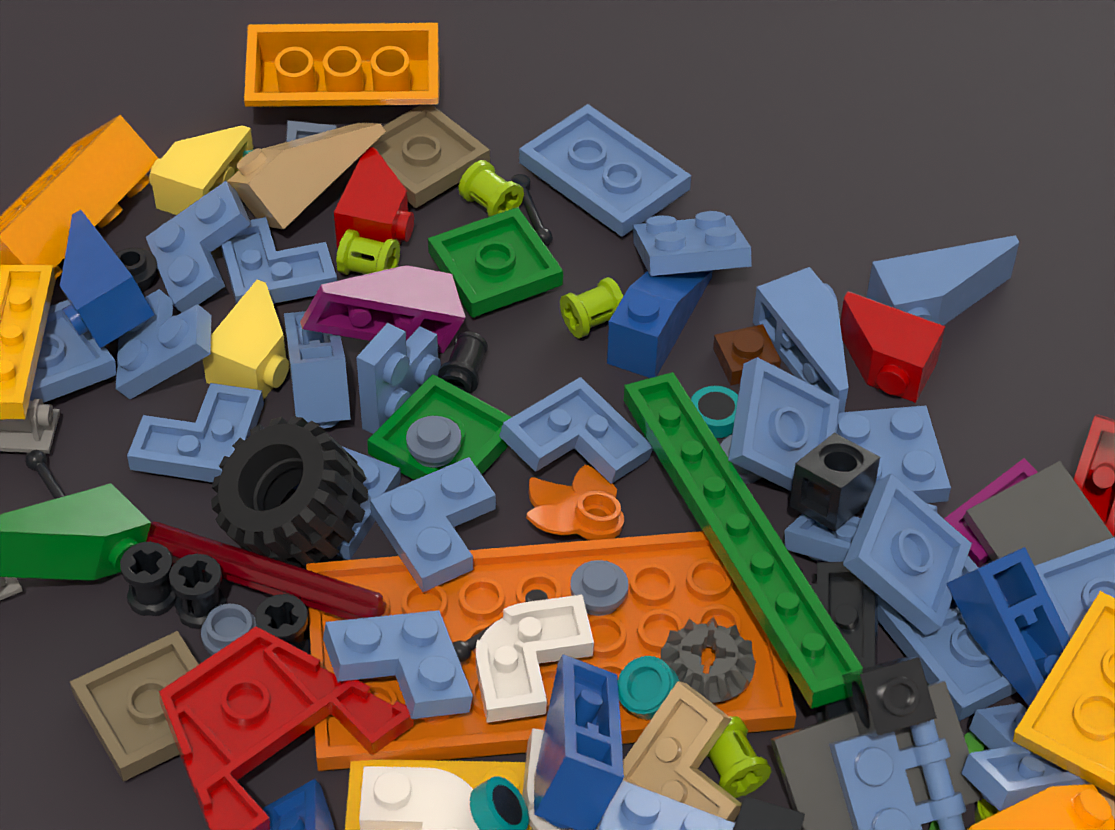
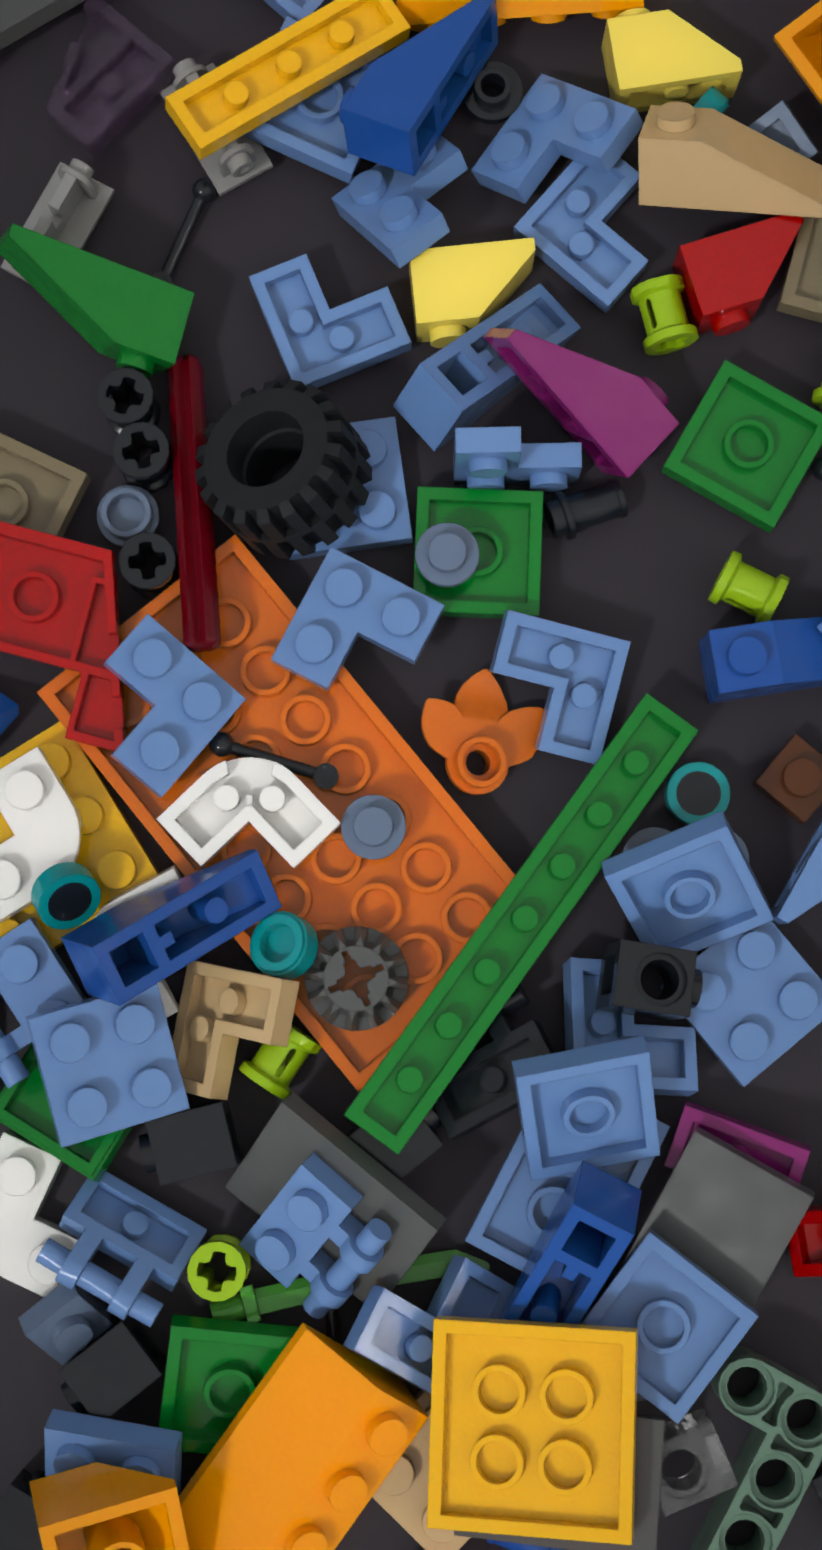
camera: 60 degrees right, 35 degrees up
(889, 696) = (363, 1196): black brick -> none

